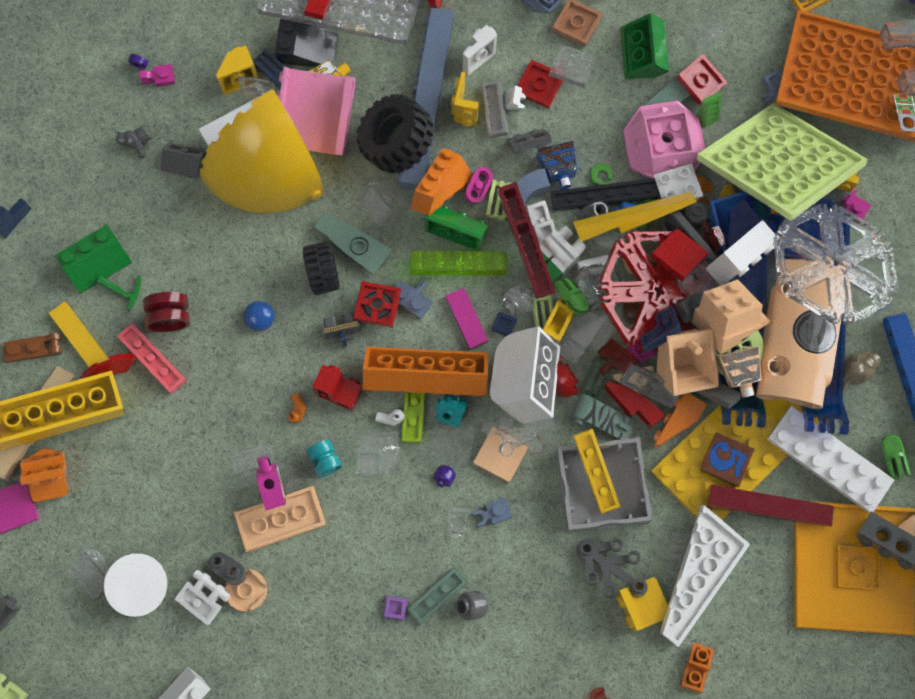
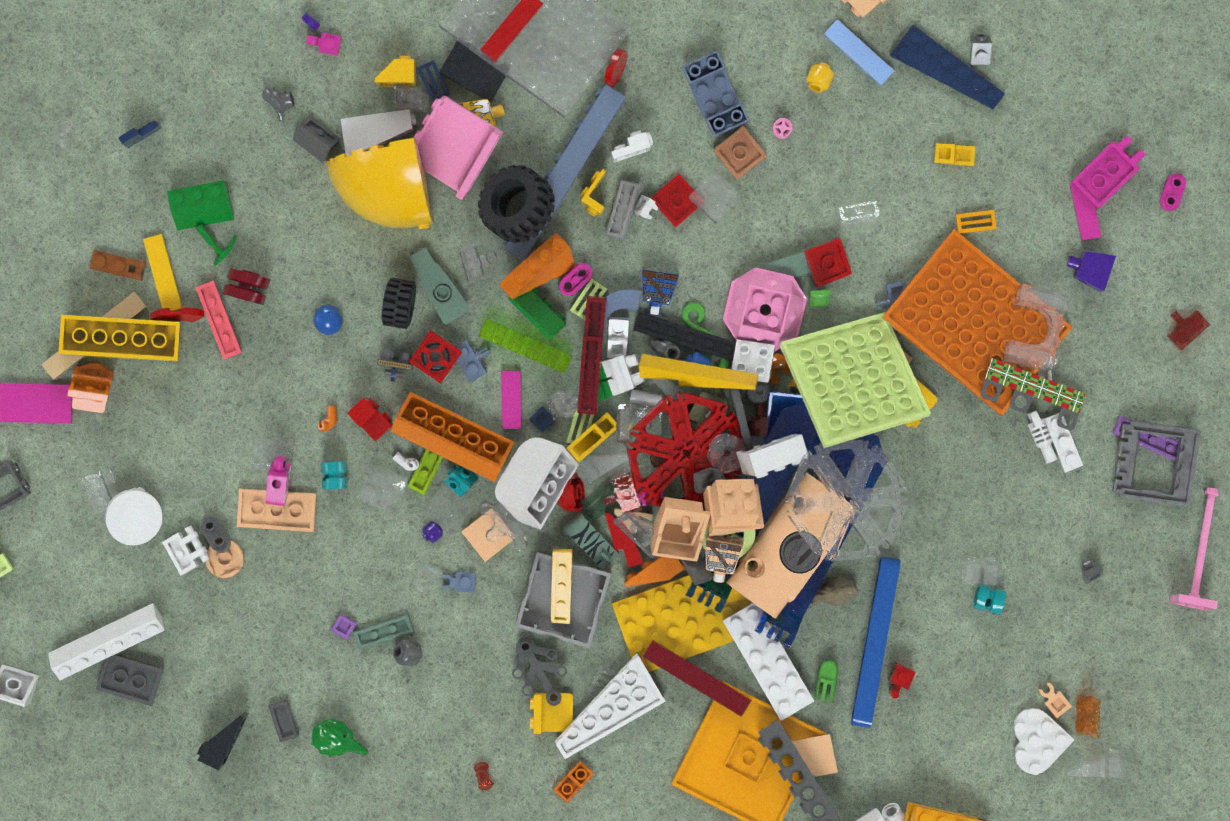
camera: 25 degrees right, 15 degrees up
(534, 139) = (639, 257): flat silver plate -> none
(572, 296) = (609, 424): bright green arm -> none
(644, 48) = (790, 207): green slope -> none
(667, 325) = (671, 496): dark blue tile -> none
(679, 254) = (718, 430): red tile -> none
(727, 459) = (679, 623): copper tile -> none
(855, 204) = (909, 443): dark pink bracket -> none

